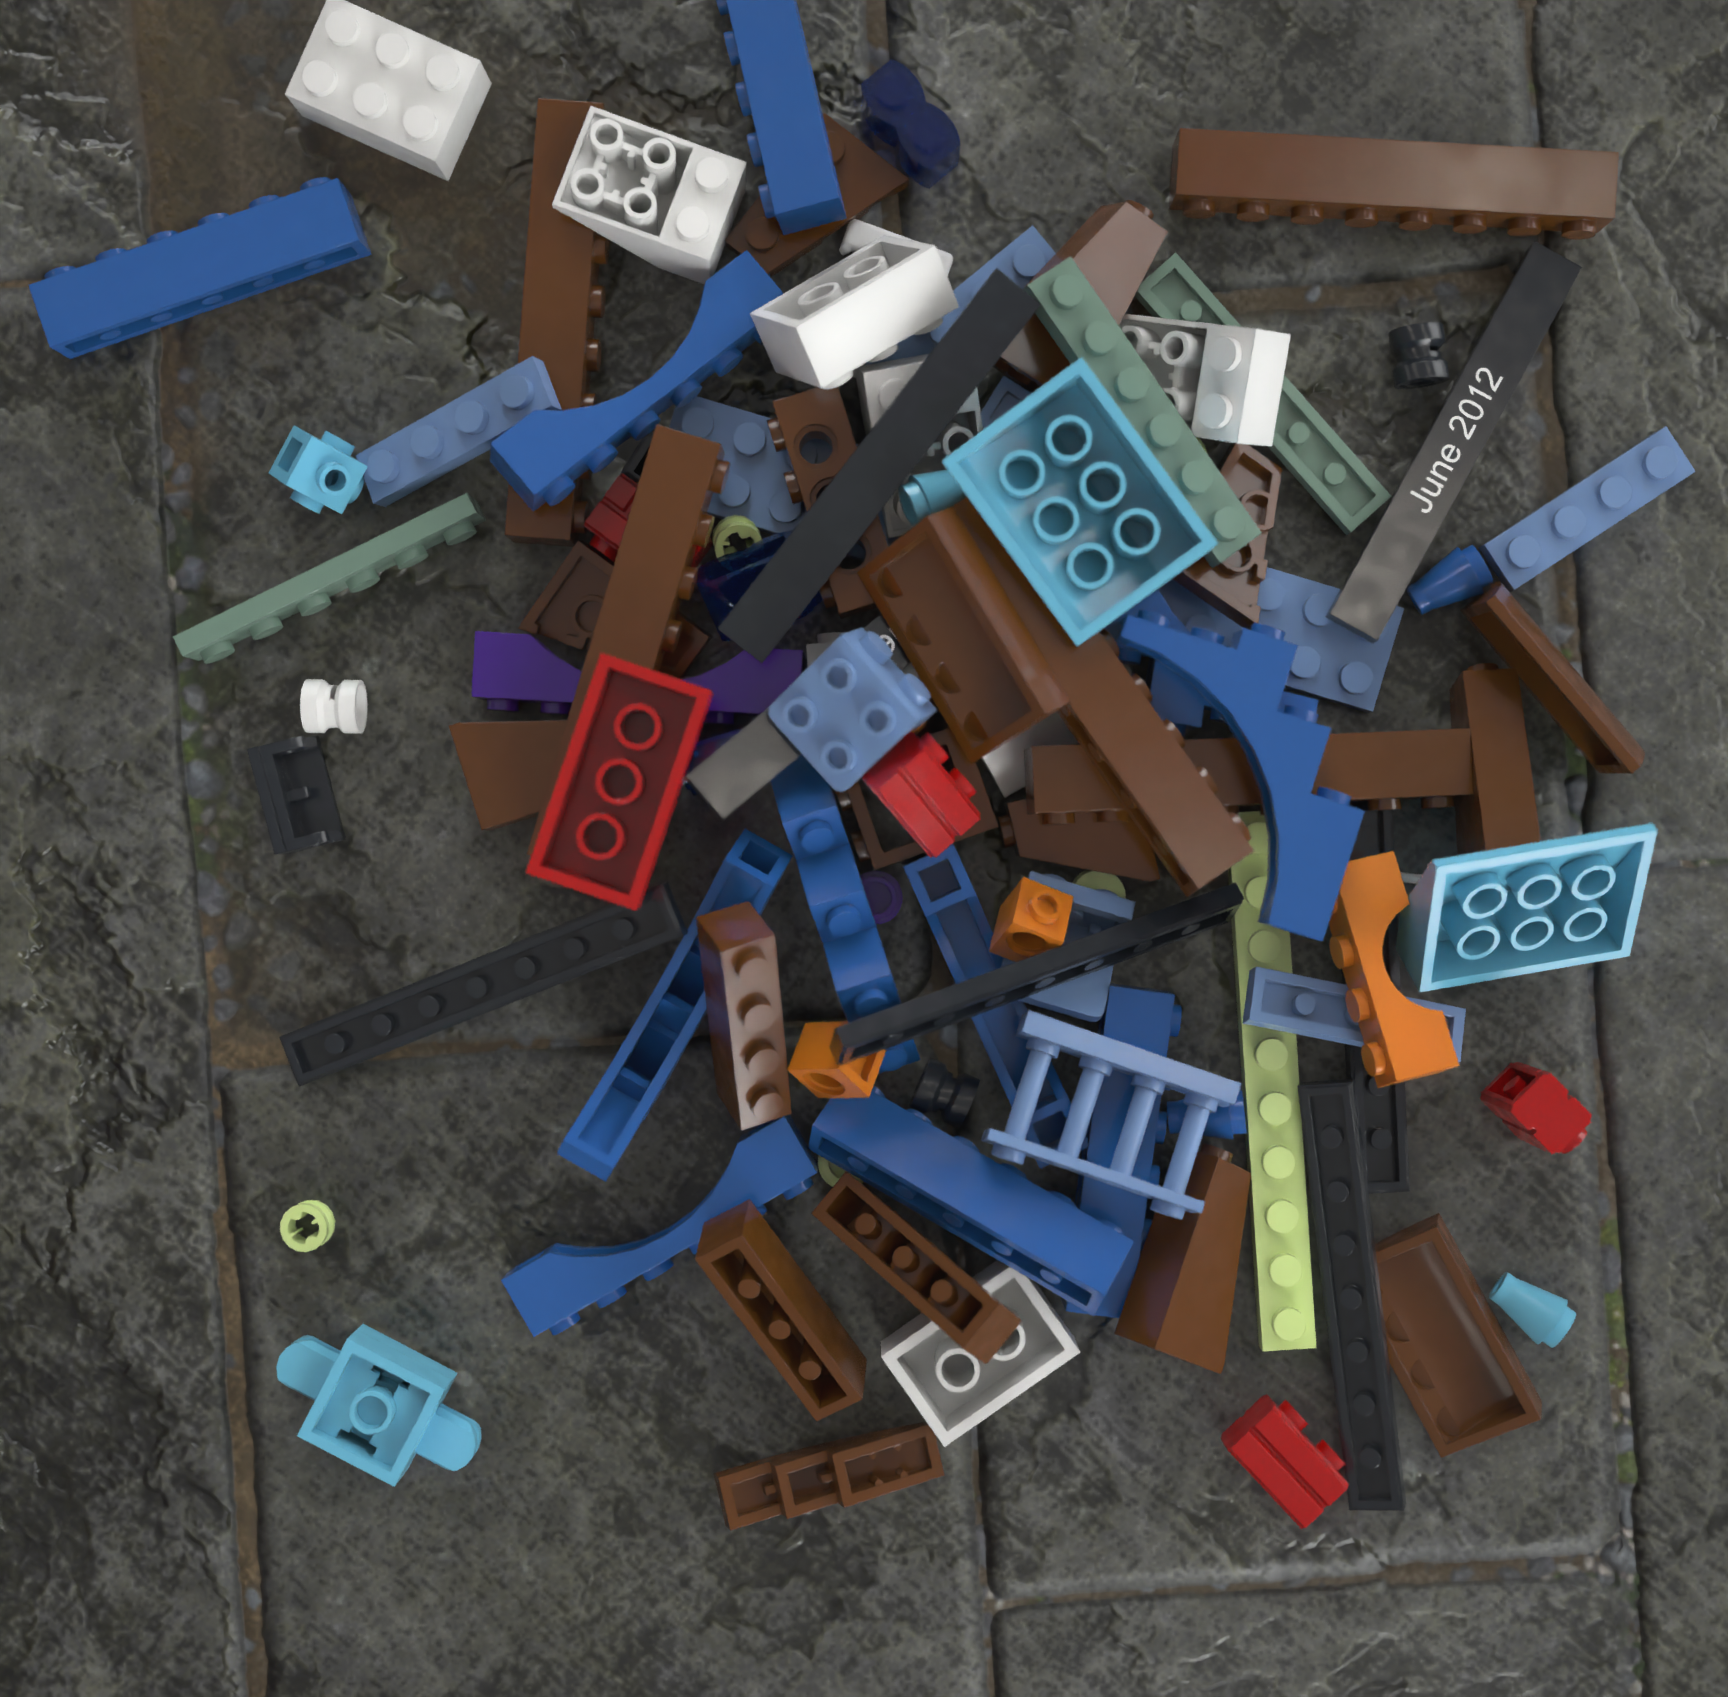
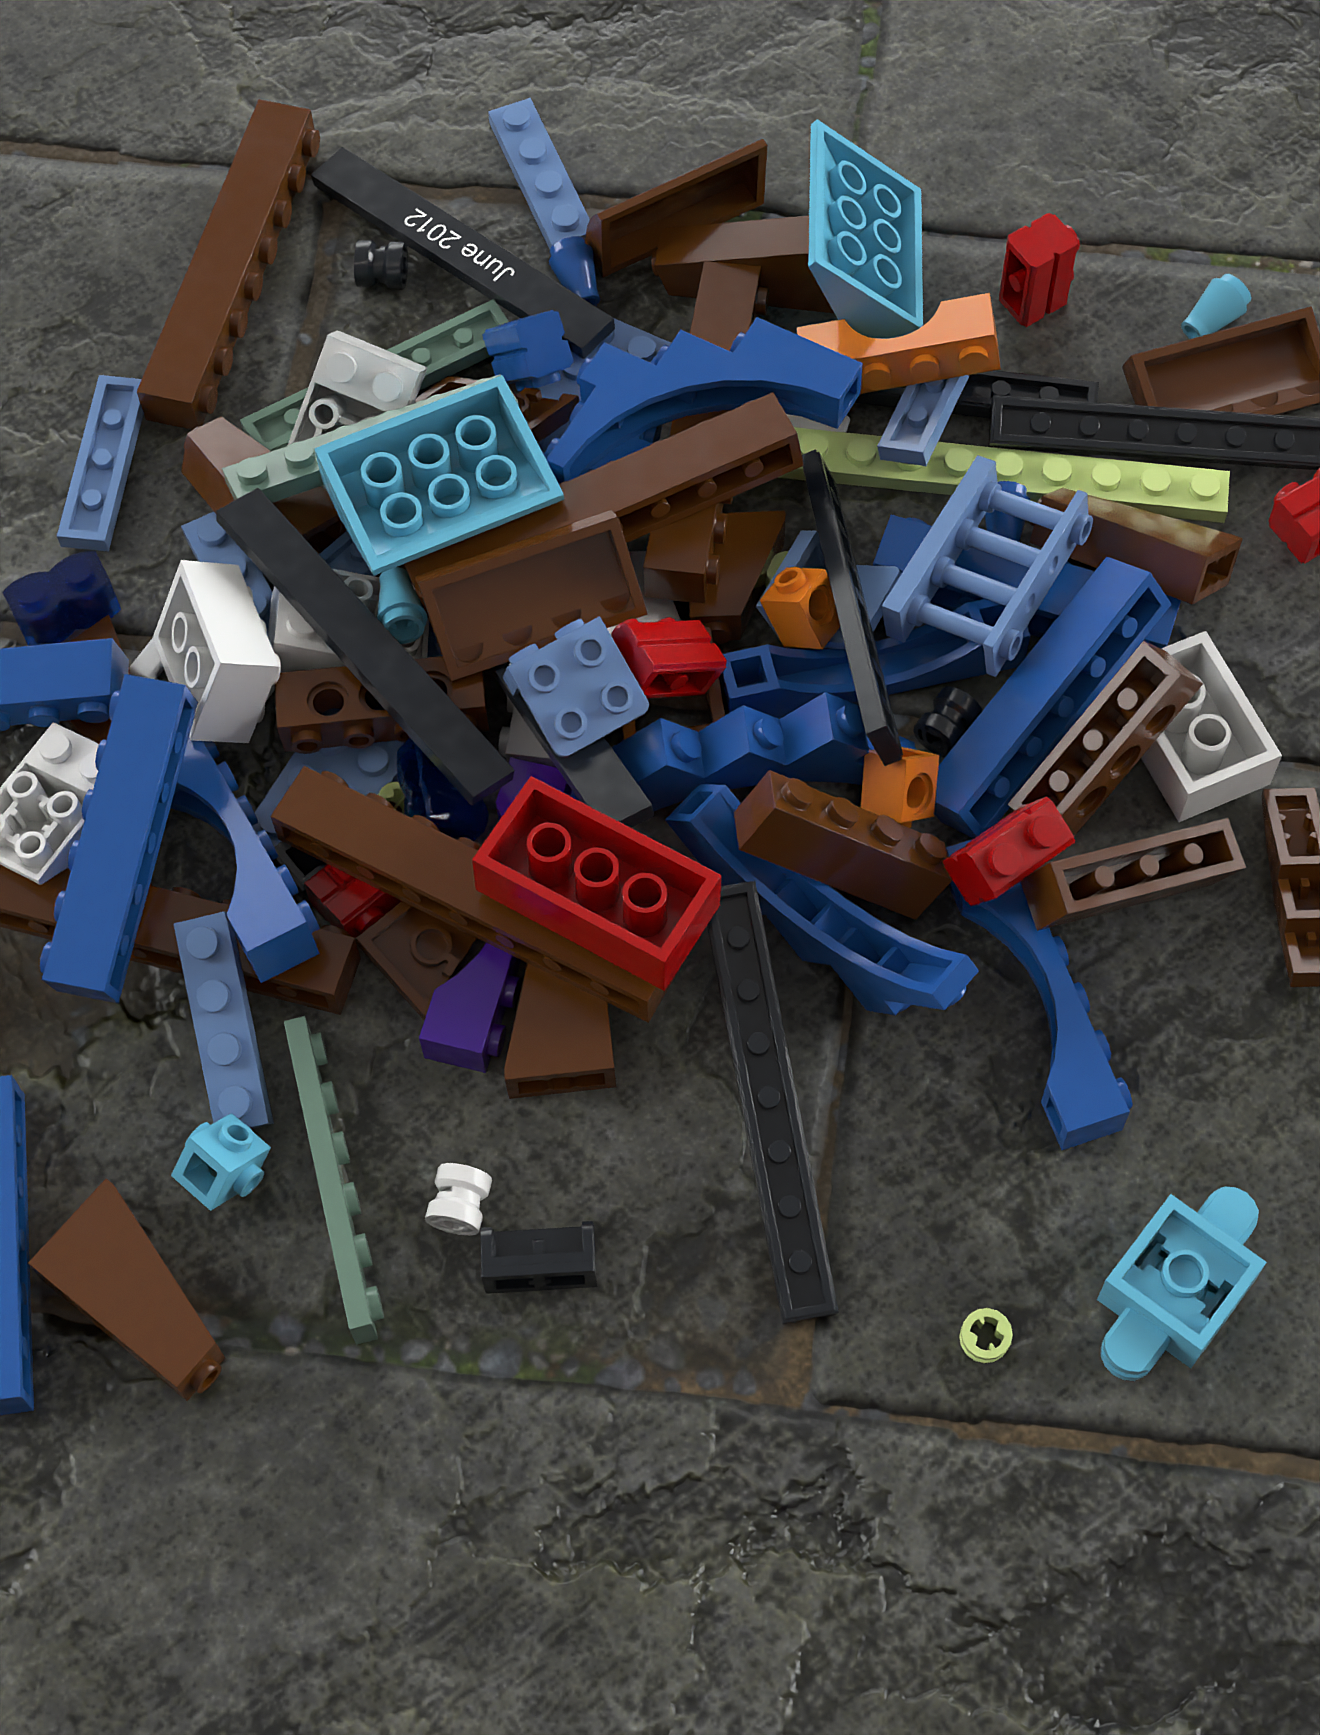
camera: 75 degrees left, 25 degrees down
(181, 419) = (123, 1286): none -> reddish brown slope
(610, 274) = (119, 839): none -> blue brick
(769, 1186) = (1009, 851): none -> red brick
(1096, 115) = (102, 465): none -> medium blue plate
(1313, 554) = (529, 350): none -> blue brick

